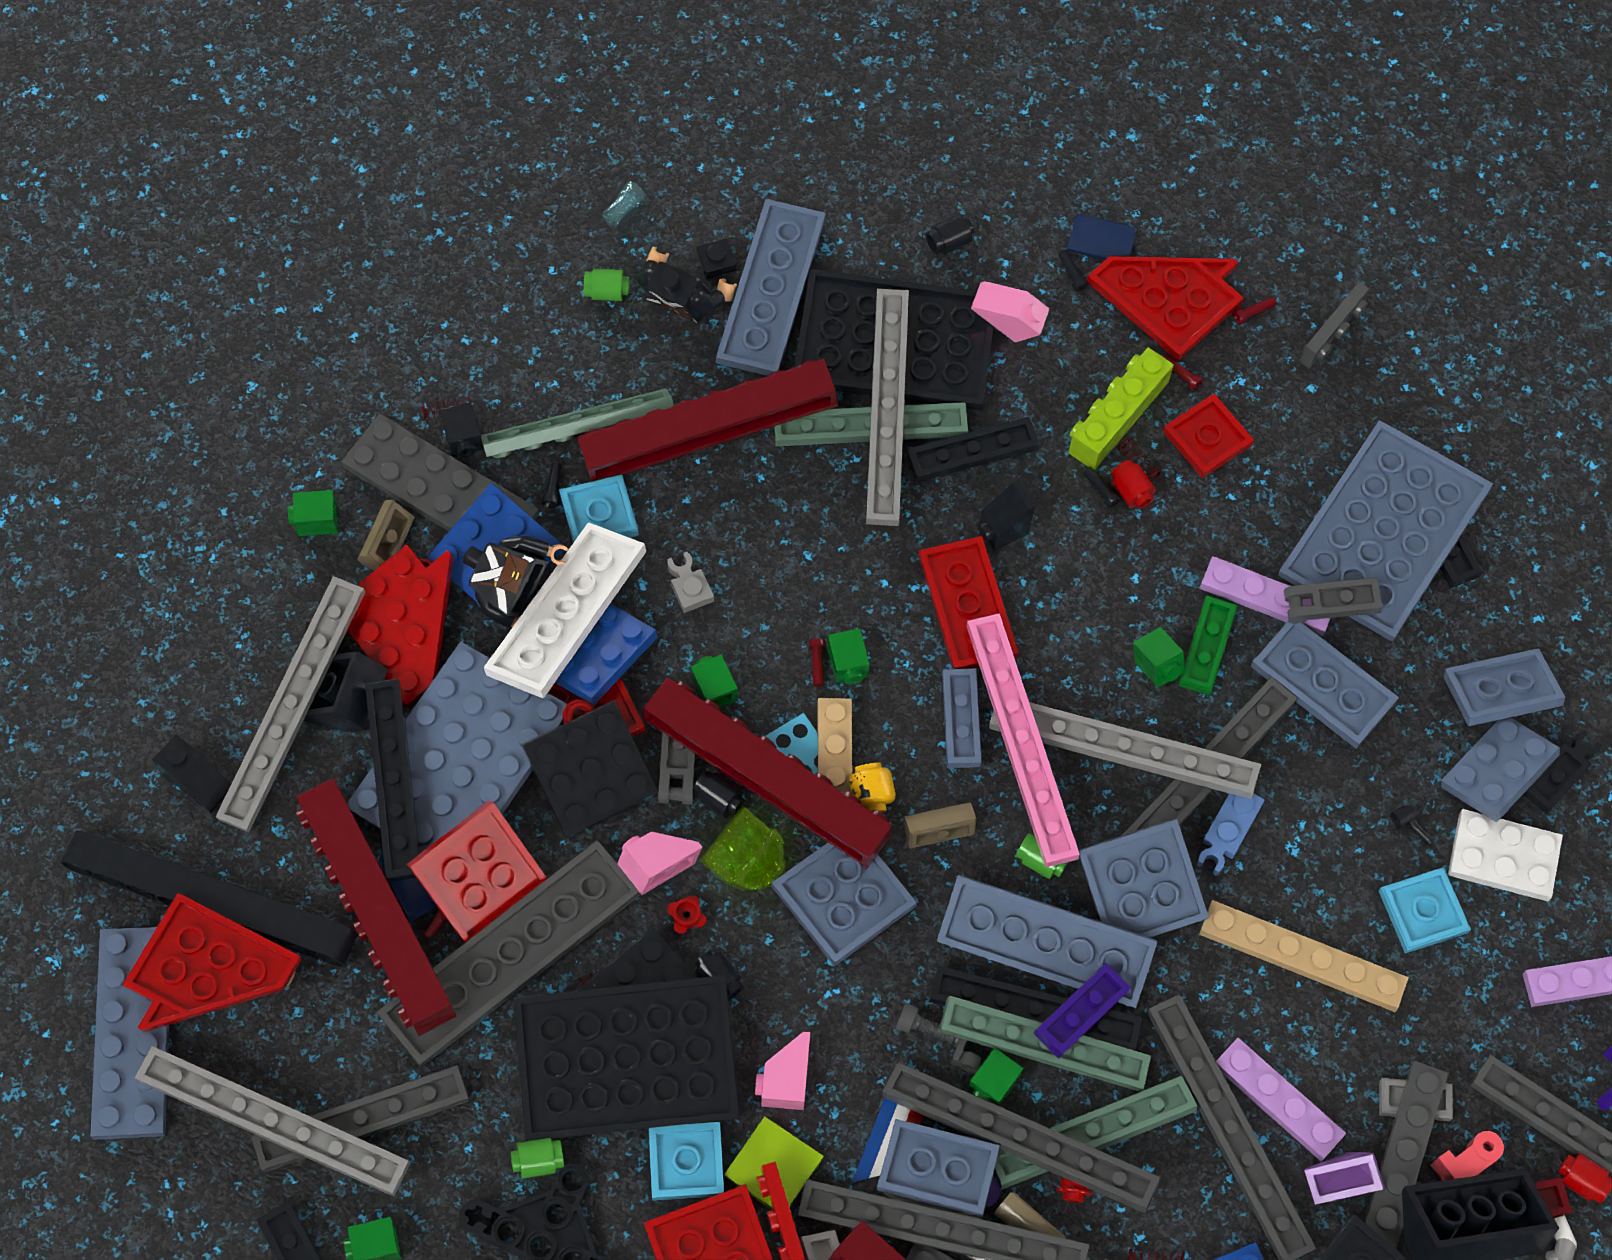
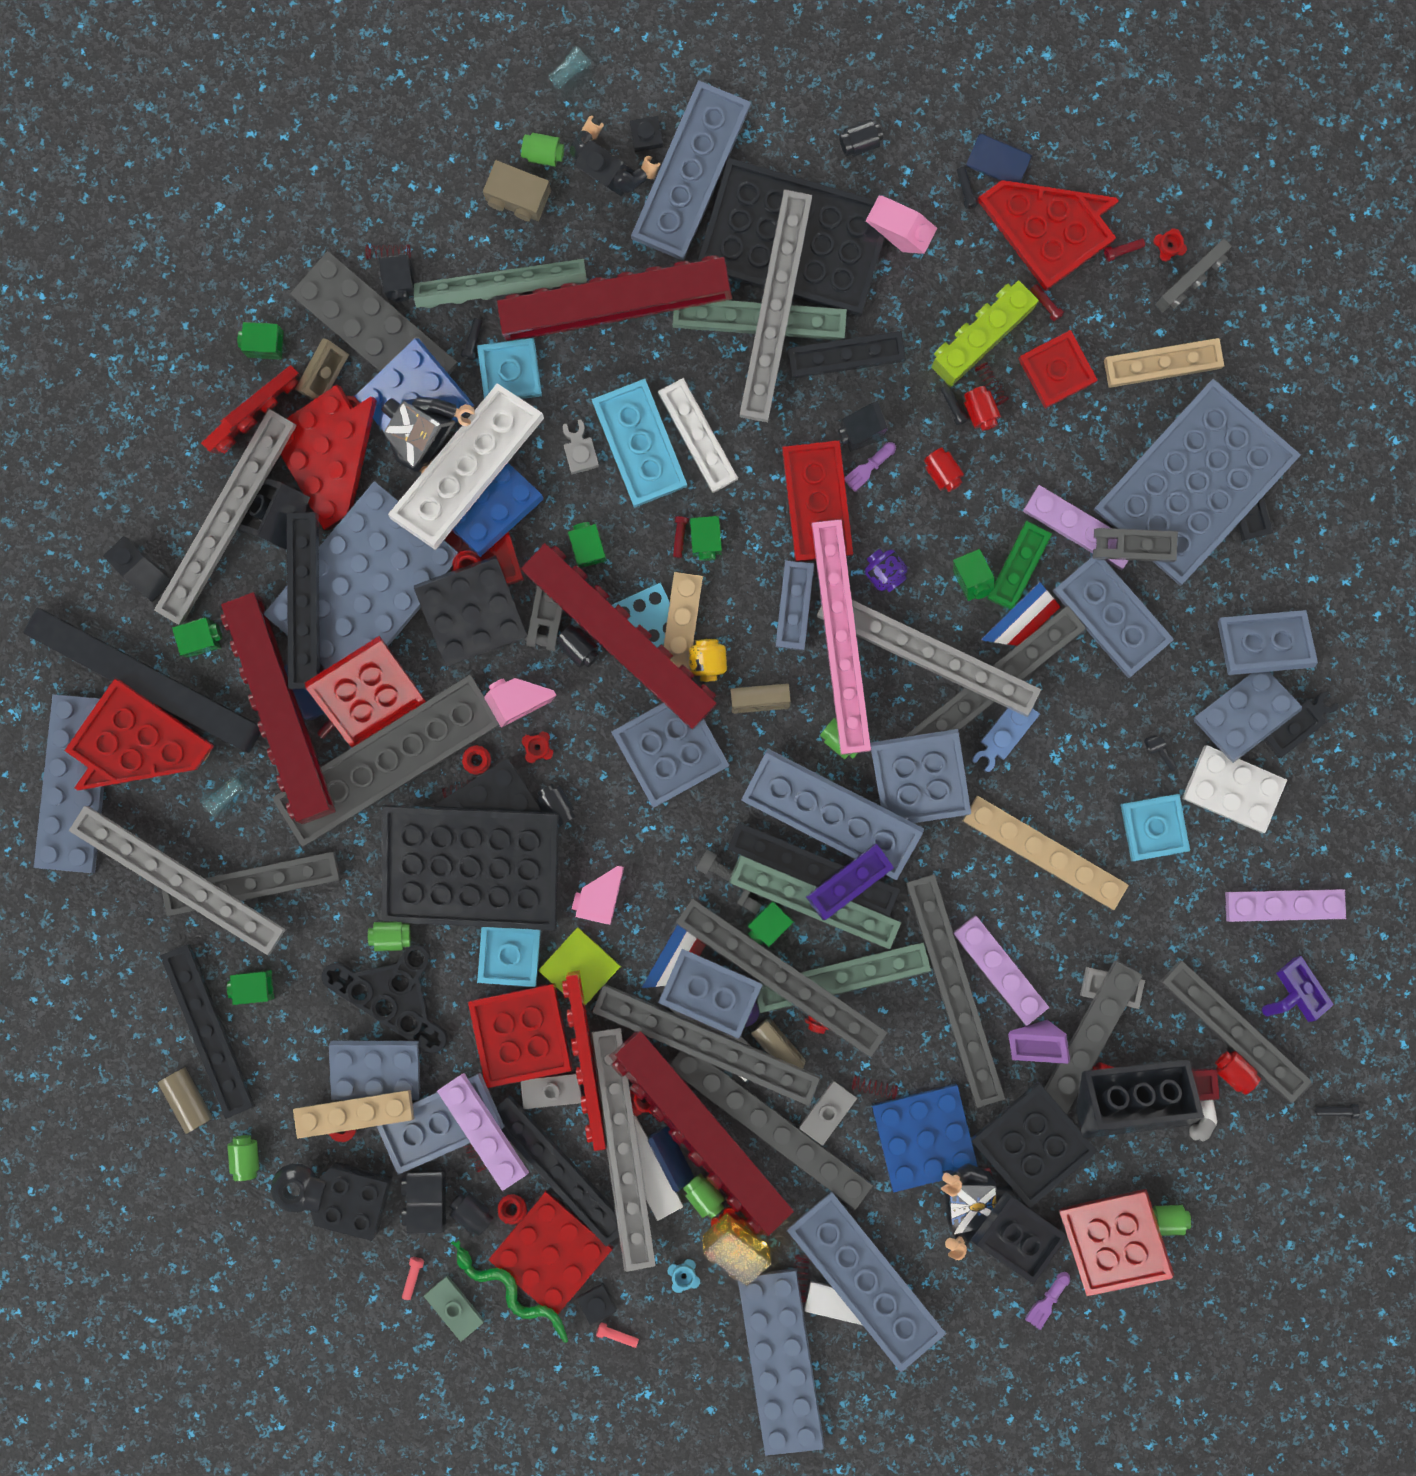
camera: 10 degrees right, 20 degrees up
(270, 841) = (197, 637): none -> green brick
(306, 583) = (243, 417): none -> red wing
(310, 1025) = (222, 796): none -> clear light blue pin
(583, 329) = (516, 191): none -> dark tan brick
(611, 930) = (470, 753): none -> red plate
(746, 853) = (594, 702): clear neon green slope -> none
(757, 568) = (639, 443): none -> medium azure plate
(821, 553) = (697, 435): none -> white tile
(1012, 570) = (862, 473): none -> medium lavender piece
(1059, 665) = (885, 570): none -> dark purple head
(1103, 553) = (944, 470): none -> red brick
(1224, 698) = (1024, 618): none -> sticker
(1305, 292) = (1173, 236): none -> red plate
(1322, 415) = (1164, 362): none -> tan plate
(1478, 1156) = (1146, 1046): coral leg -> none

